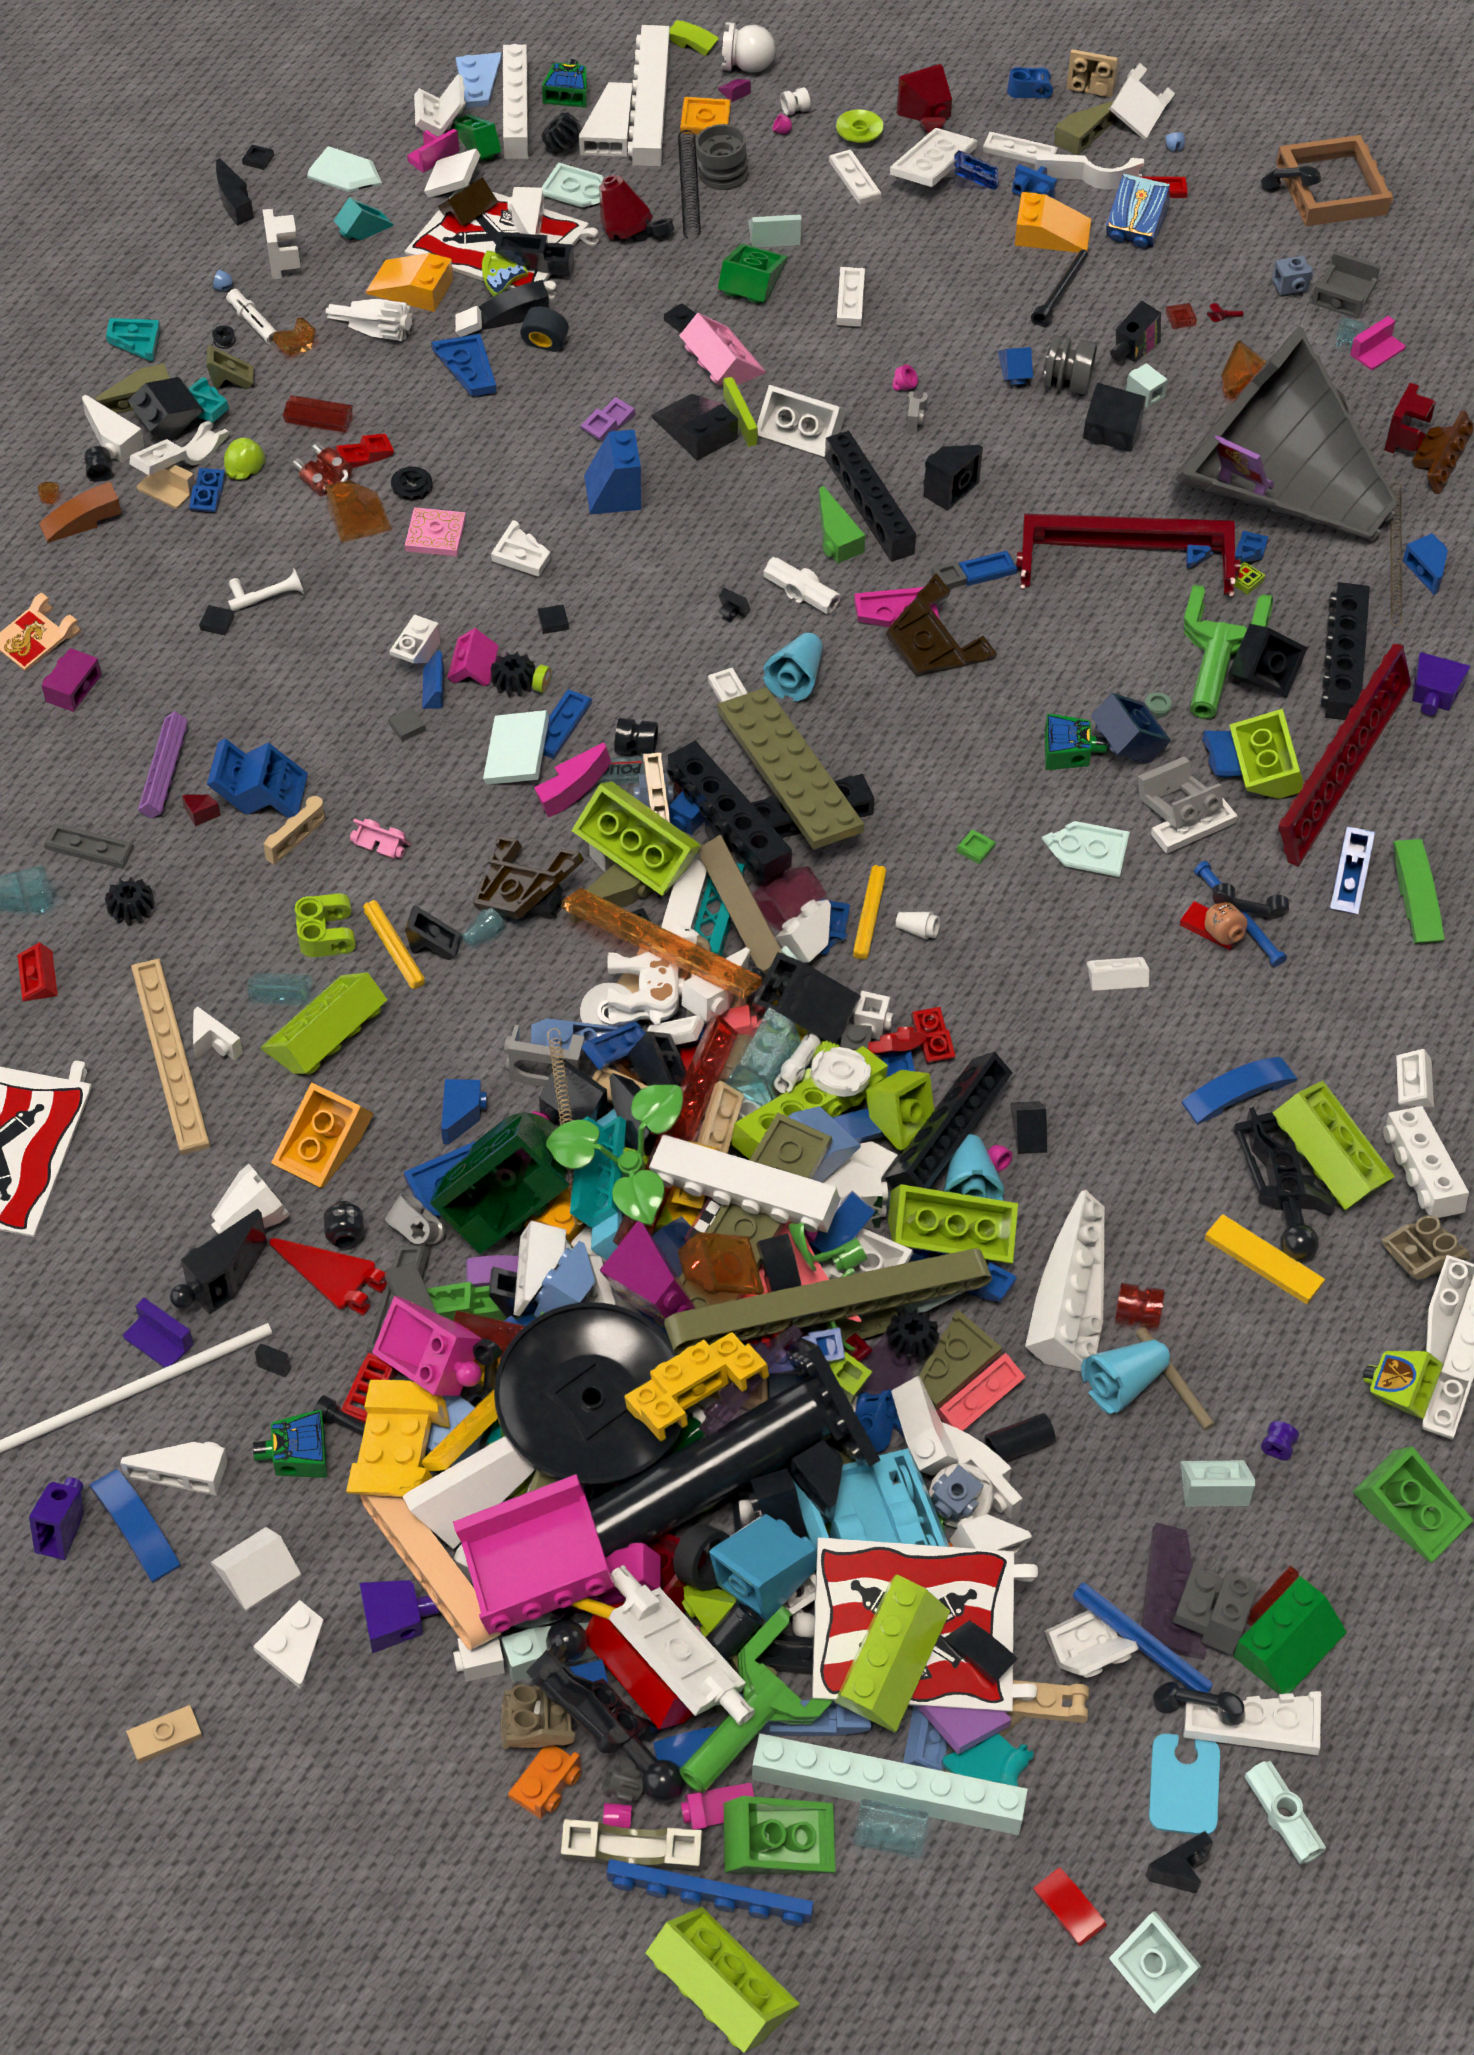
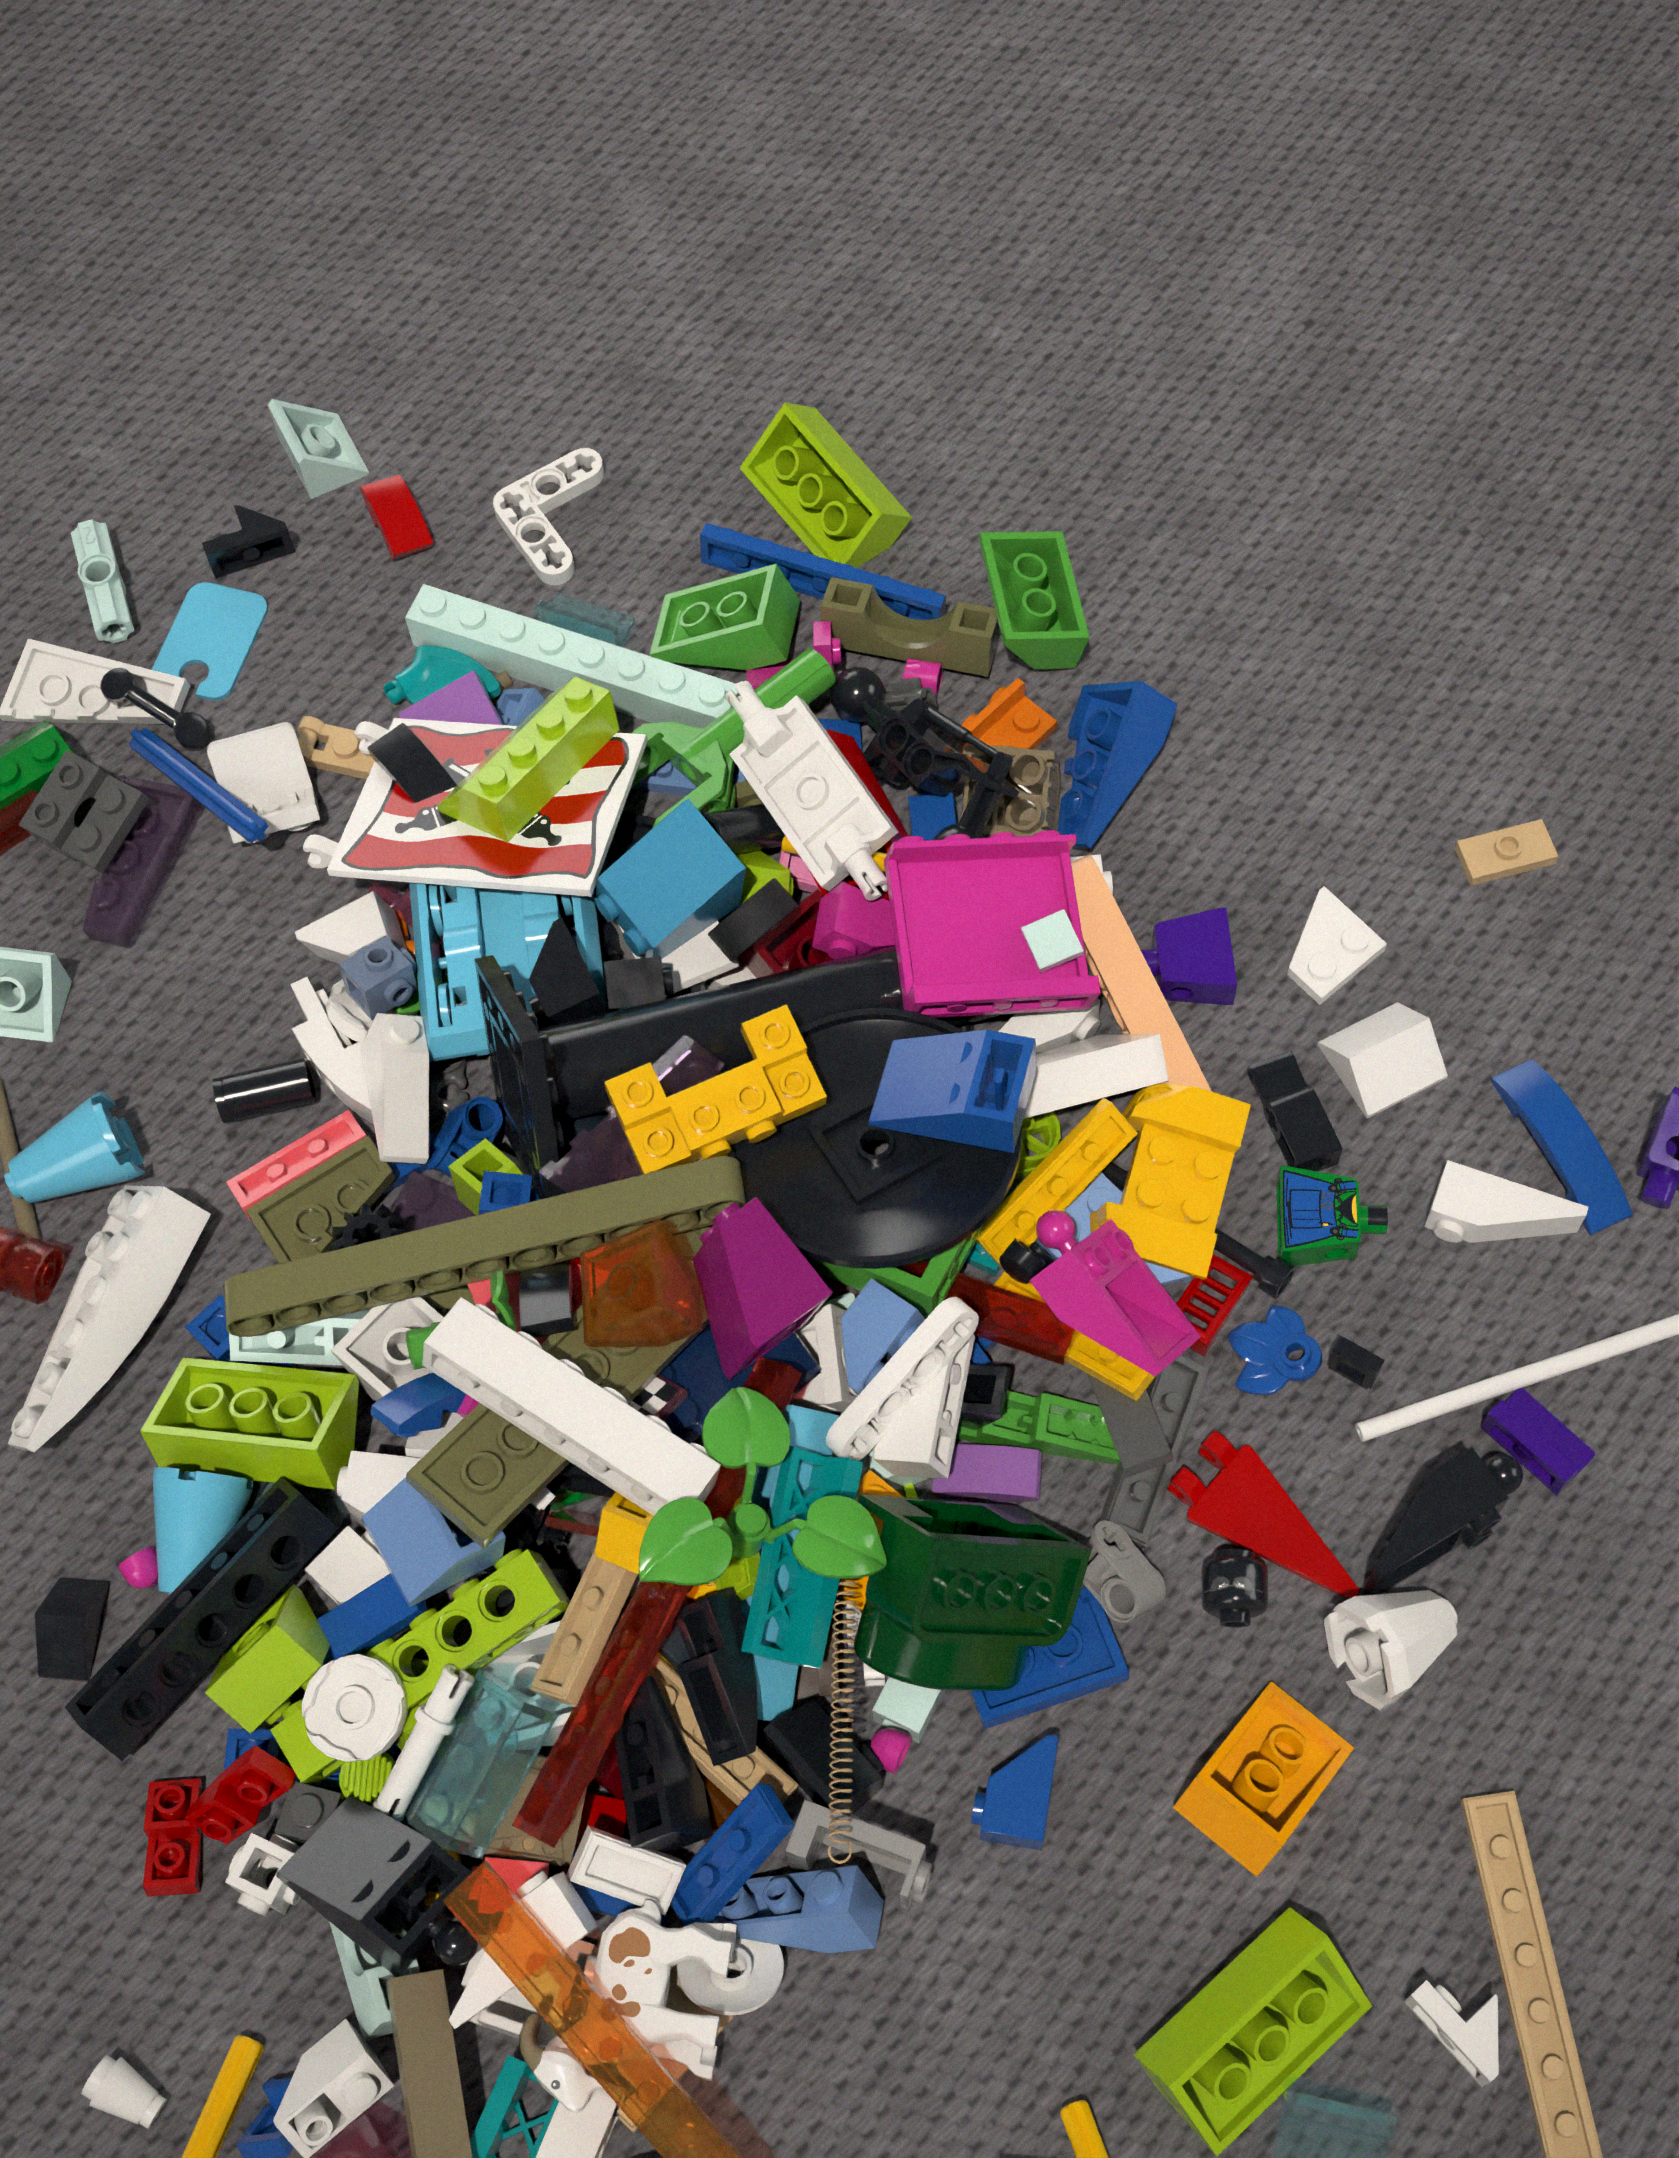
camera: 165 degrees left, 10 degrees up
(316, 1513) = (1295, 1114): none -> black piece
(328, 1369) = (1267, 1352): none -> blue plate
(460, 1773) = (1117, 738): none -> blue wedge
(489, 1557) = (1052, 941): none -> light aqua tile
(537, 1877) = (1035, 597): none -> bright green slope
(540, 1408) = (958, 1087): none -> blue slope
(549, 1259) = (902, 1379): none -> white beam
(959, 1941) = (534, 506): none -> white beam

